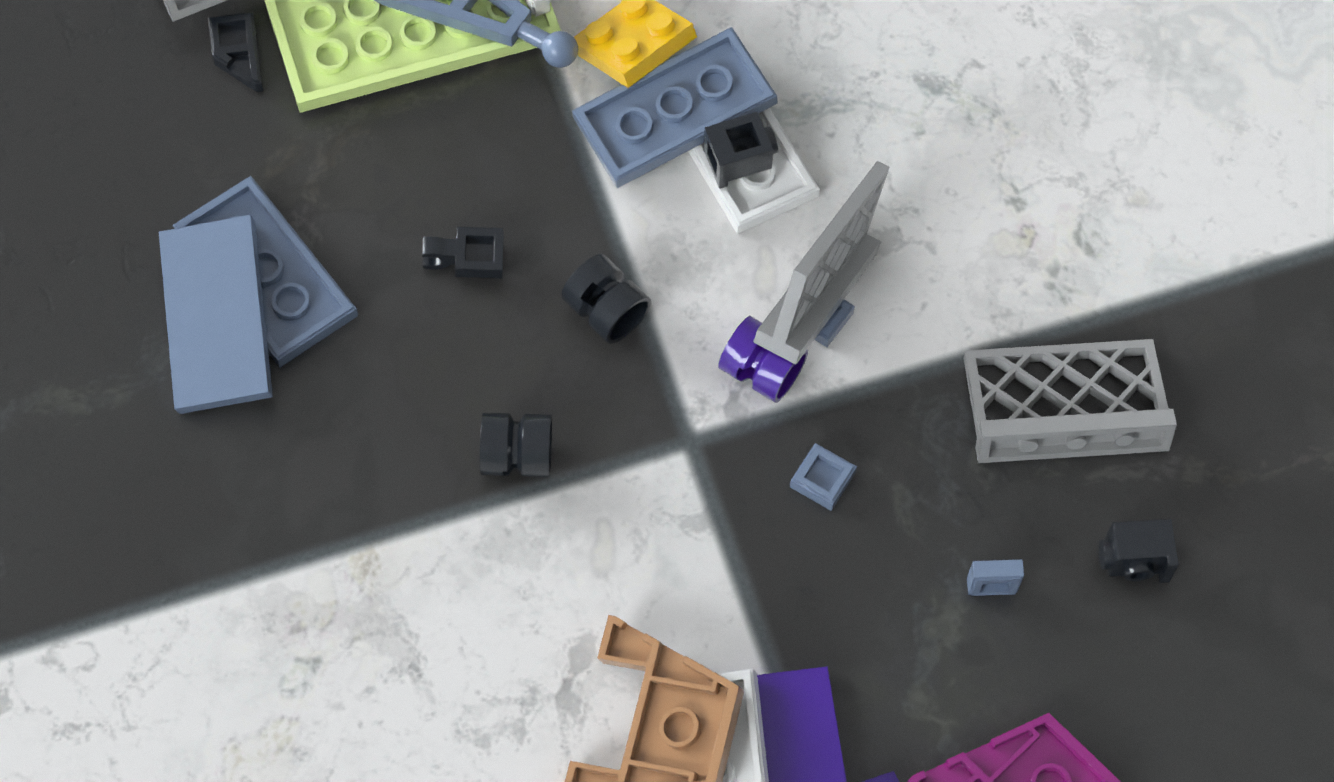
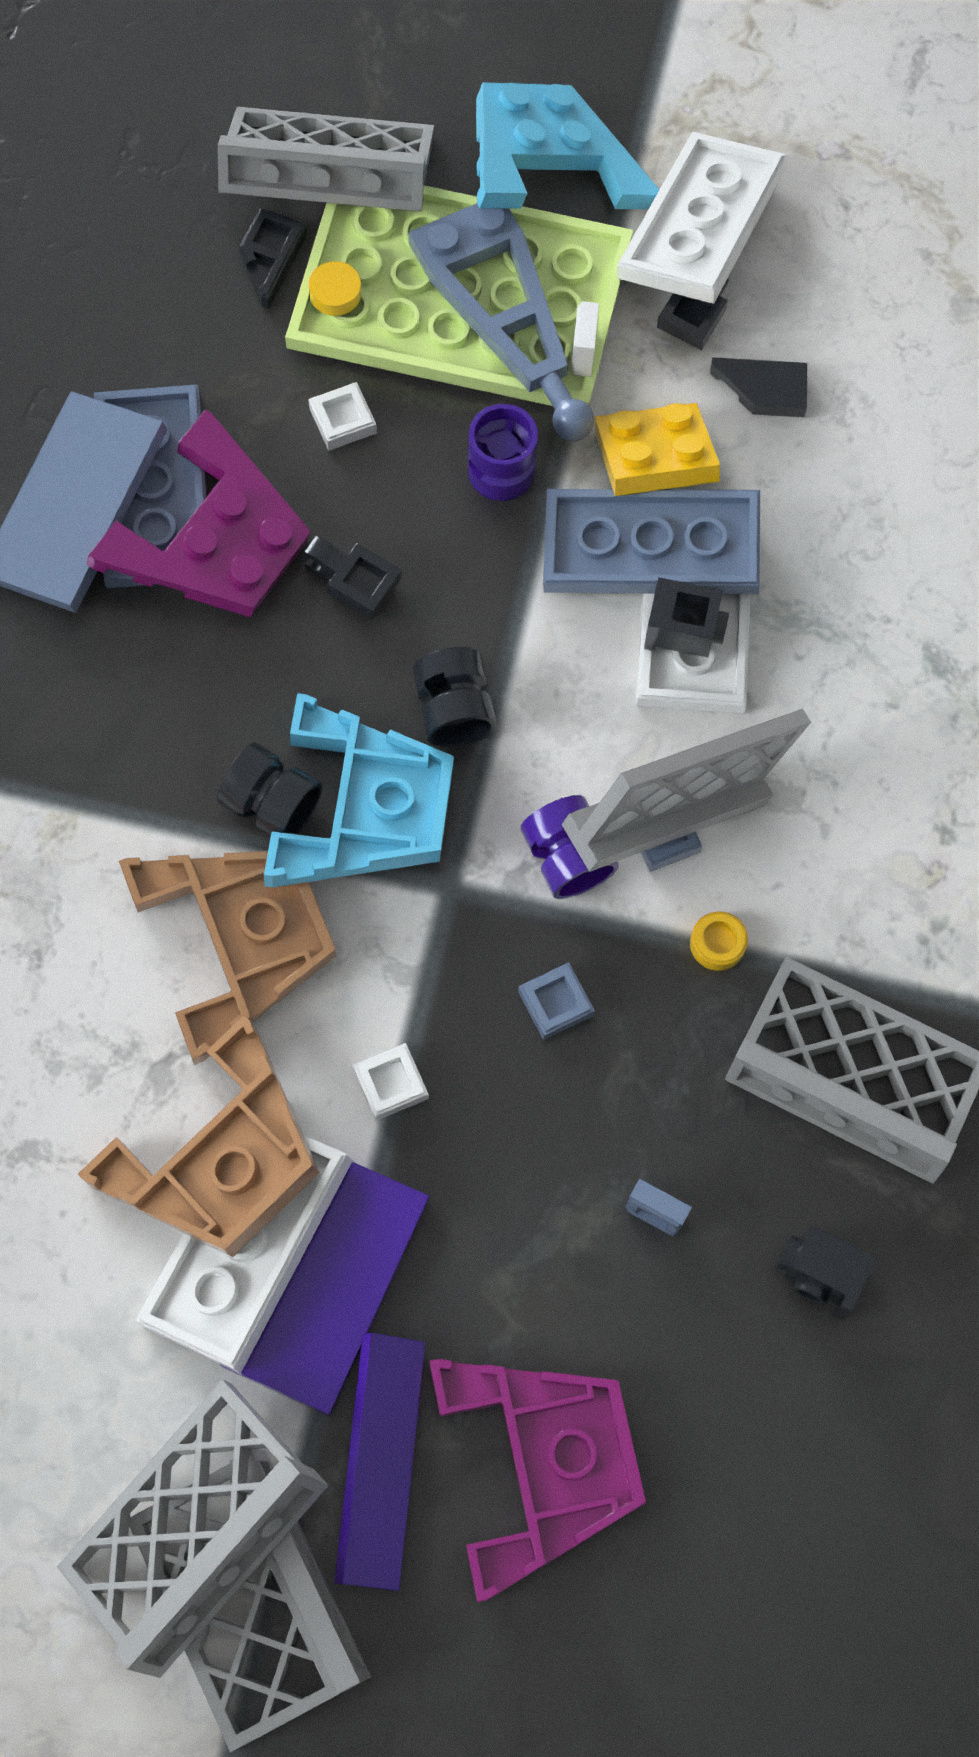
camera: 30 degrees right, 5 degrees up
(314, 46) = (335, 288): none -> yellow tile
(360, 278) = (231, 544): none -> magenta wing
(377, 140) = (342, 416): none -> white tile
(522, 101) = (502, 452): none -> dark purple wheel
(568, 544) = (262, 934): none -> medium nougat wing
(607, 402) = (386, 806): none -> medium azure wing
(742, 603) = (390, 1082): none -> white tile
(910, 367) = (718, 941): none -> yellow tile

